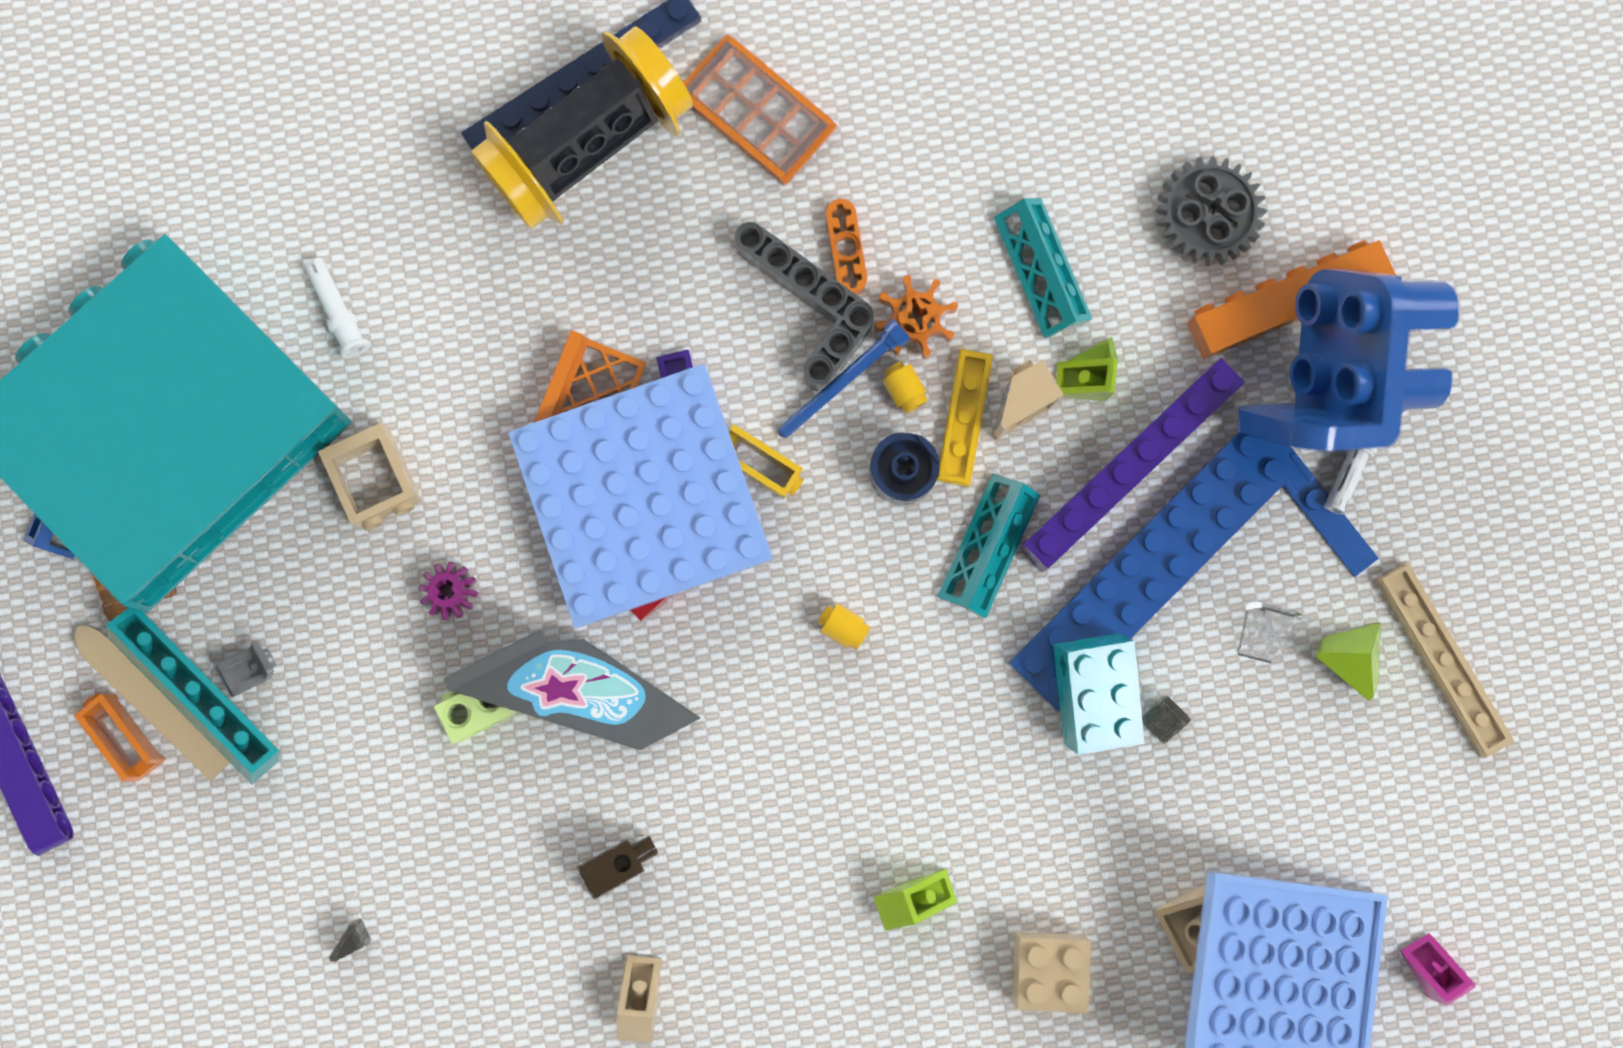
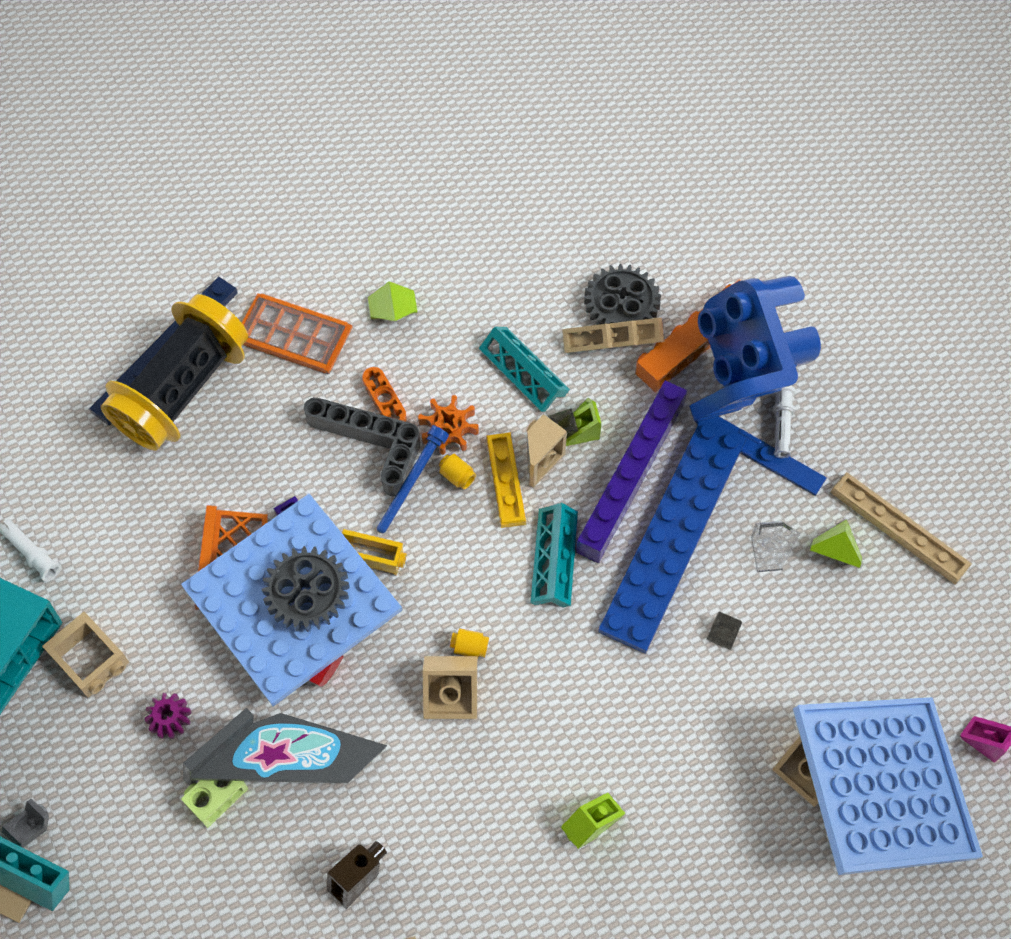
camera: 15 degrees left, 20 degrees down
(644, 471) = (323, 601): none -> dark grey gear
(801, 674) = (450, 687): none -> tan slope
(900, 112) = (392, 302): none -> lime slope
(904, 449) = (464, 525): dark blue brick -> none
(1051, 972) = (713, 836): tan brick -> none
(1066, 369) = (565, 420): none -> clear smoke slope
(1099, 693) = (669, 623): piece -> none
(1178, 264) = (613, 335): none -> tan slope

